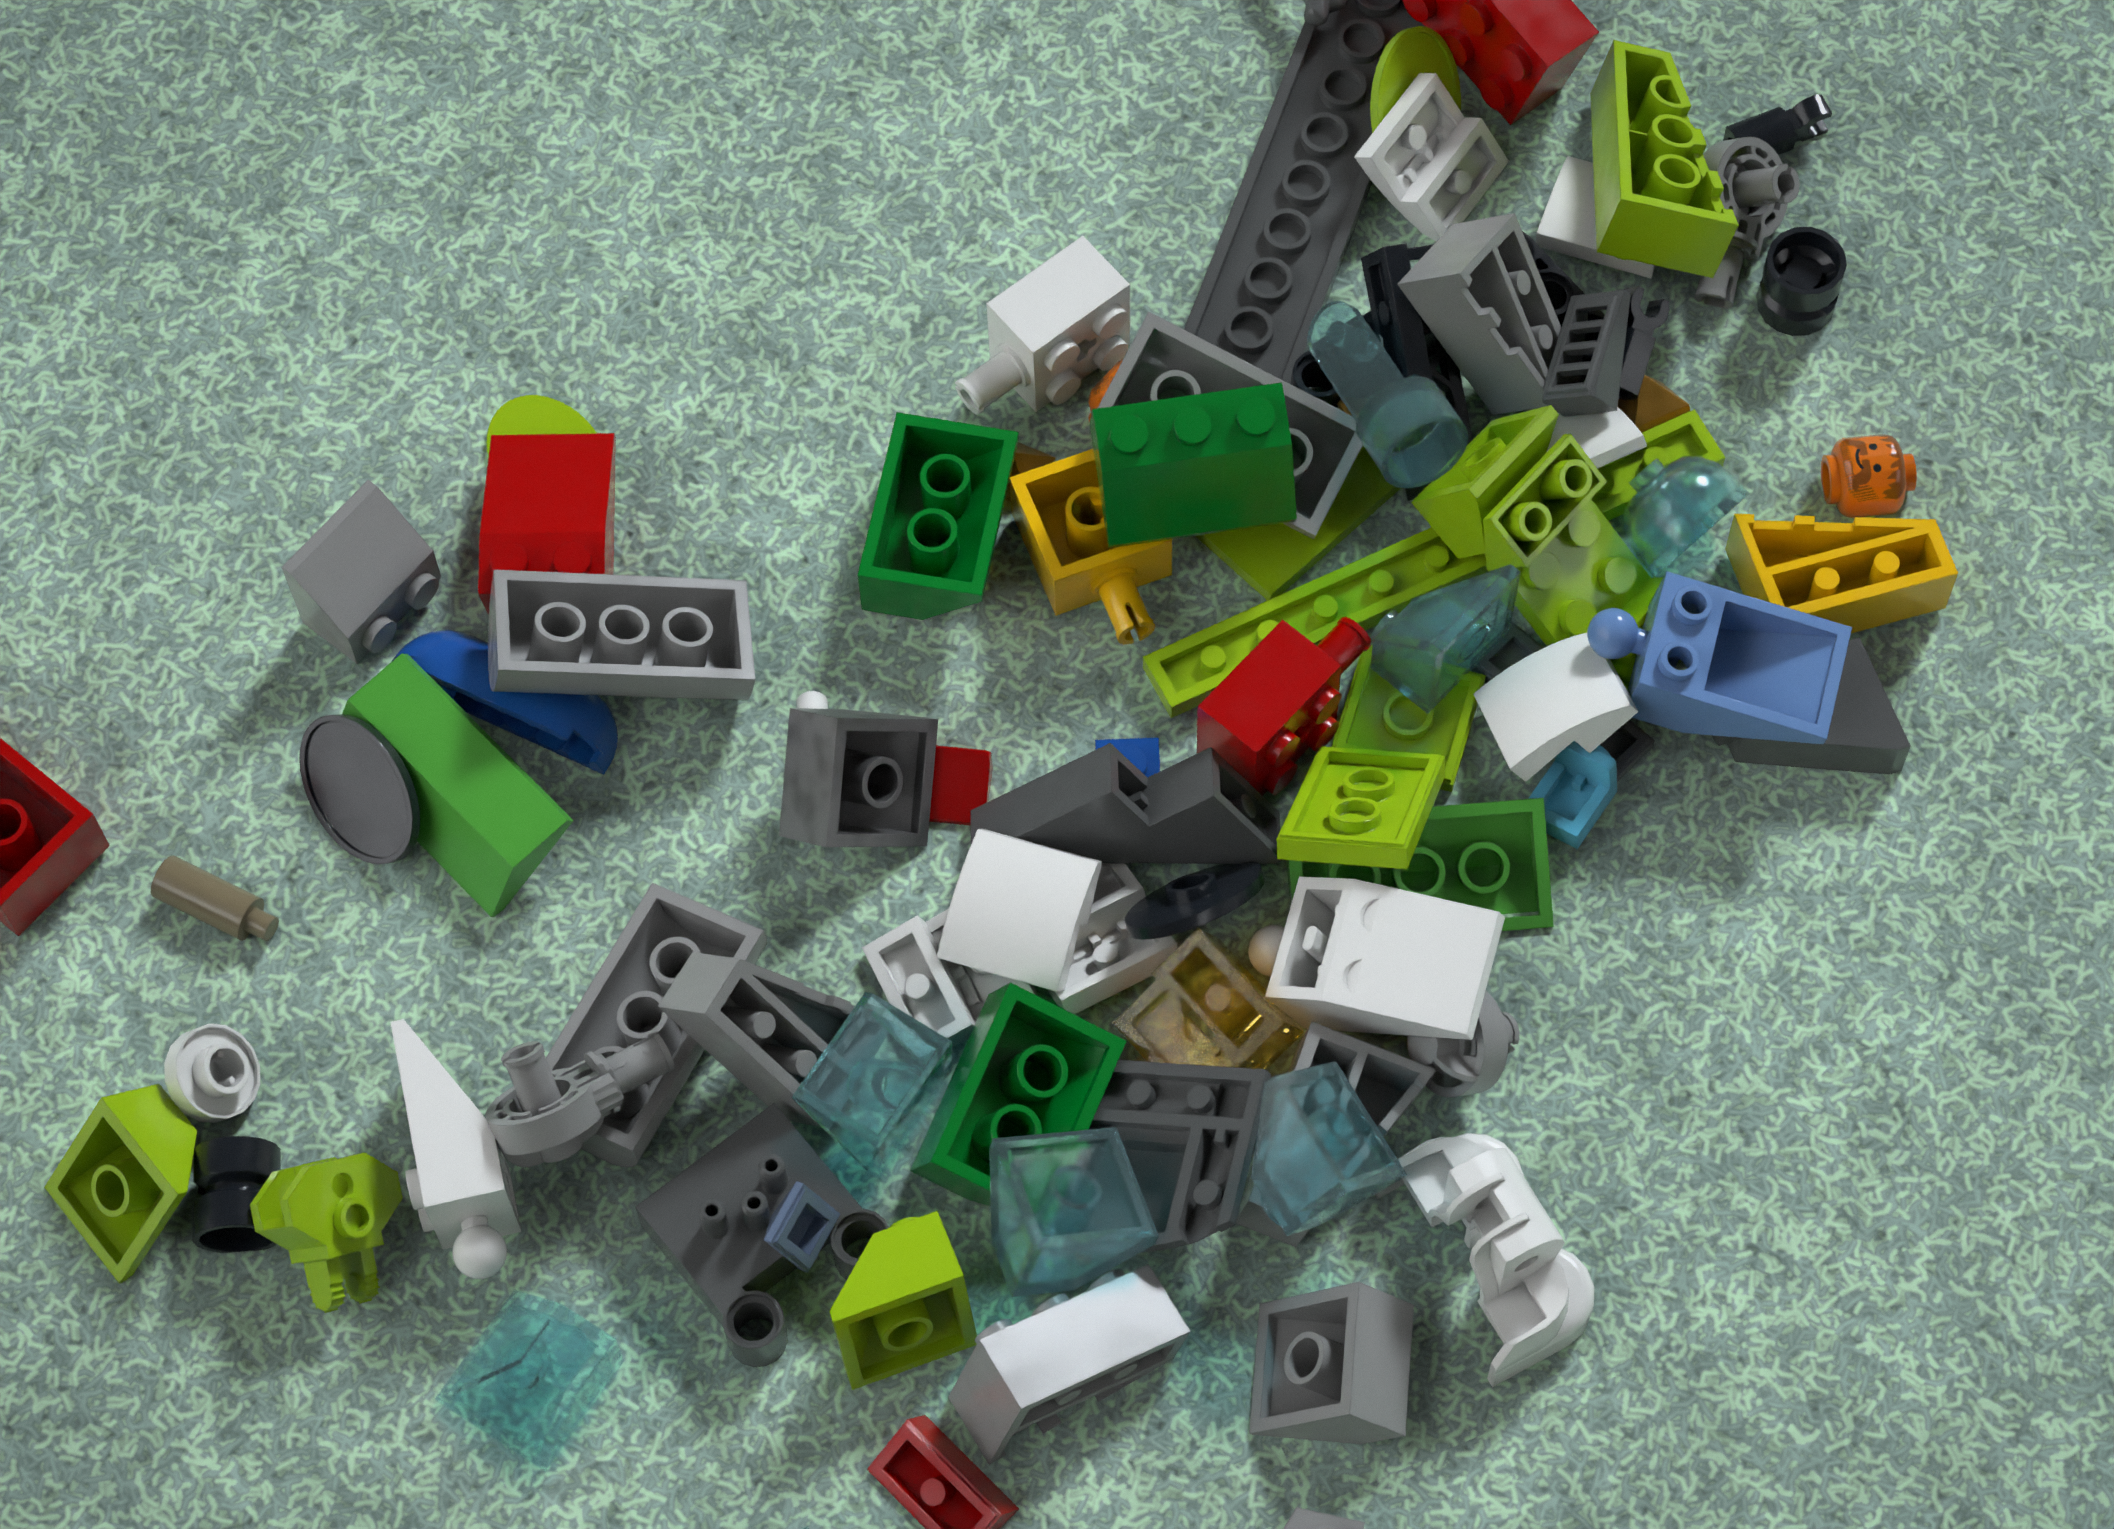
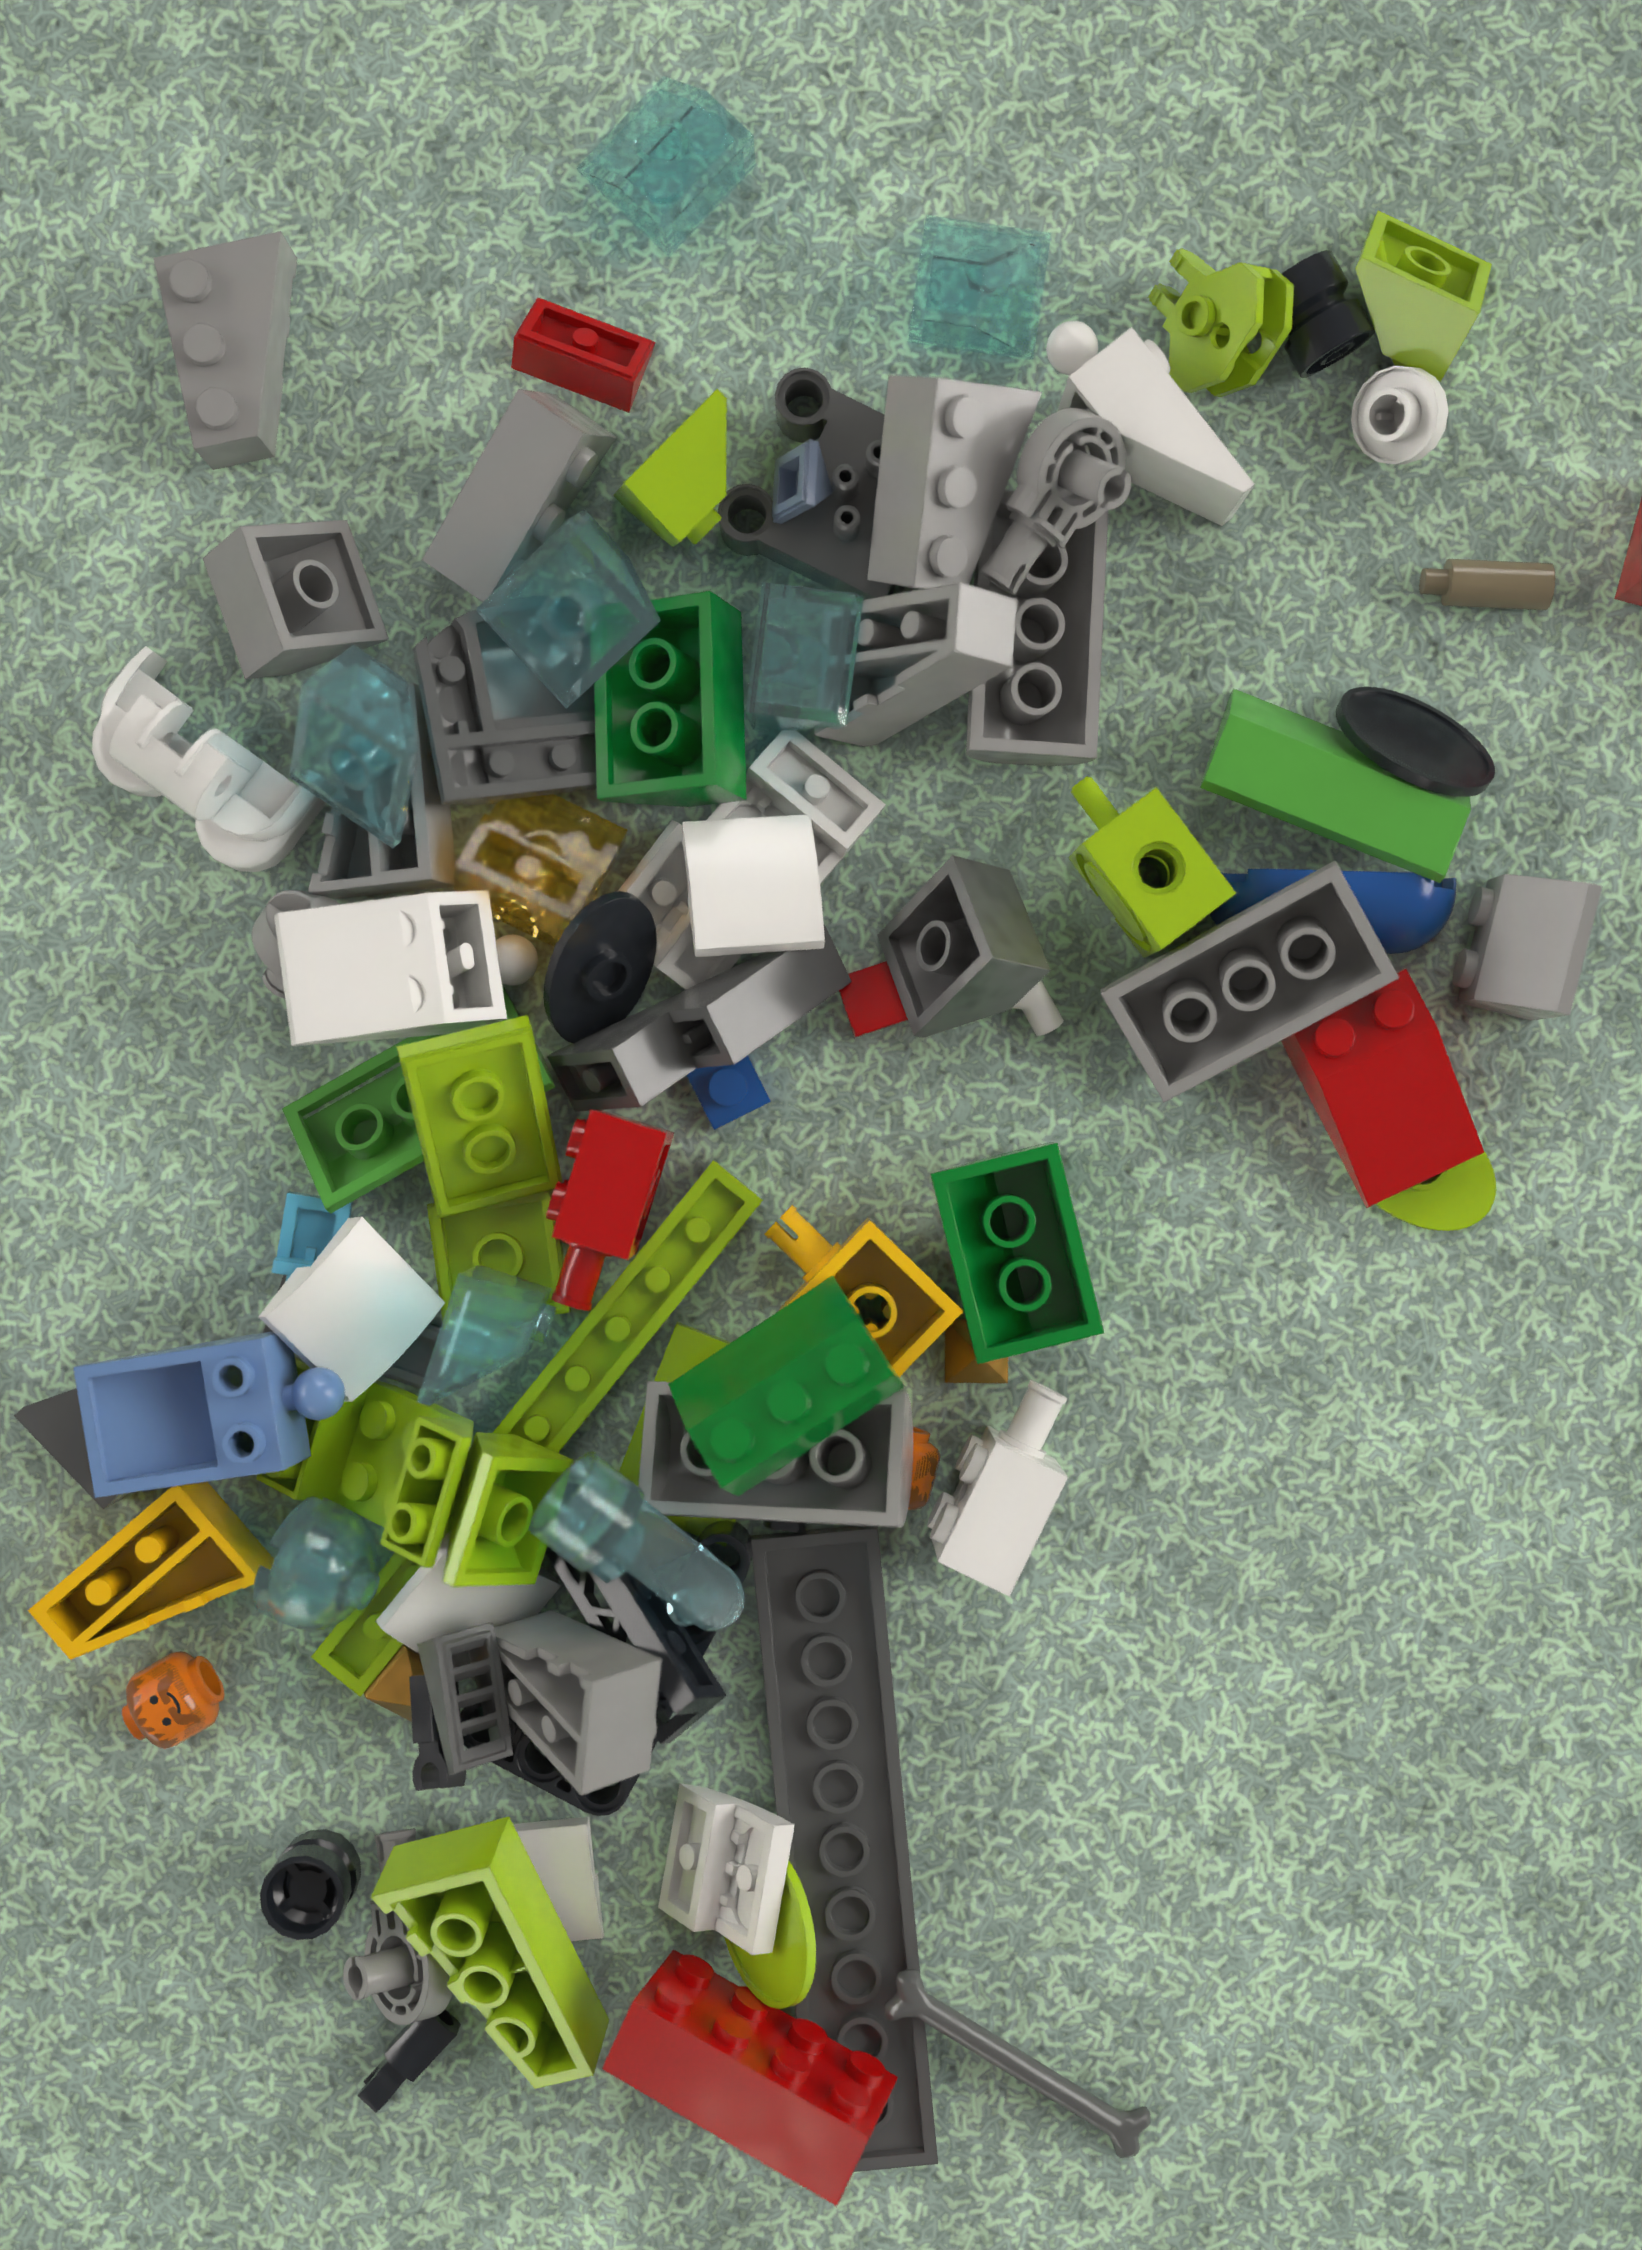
camera: 150 degrees right, 25 degrees up
(658, 769) = (1149, 835): none -> lime piece
(662, 1161) = (942, 476): none -> light grey wedge

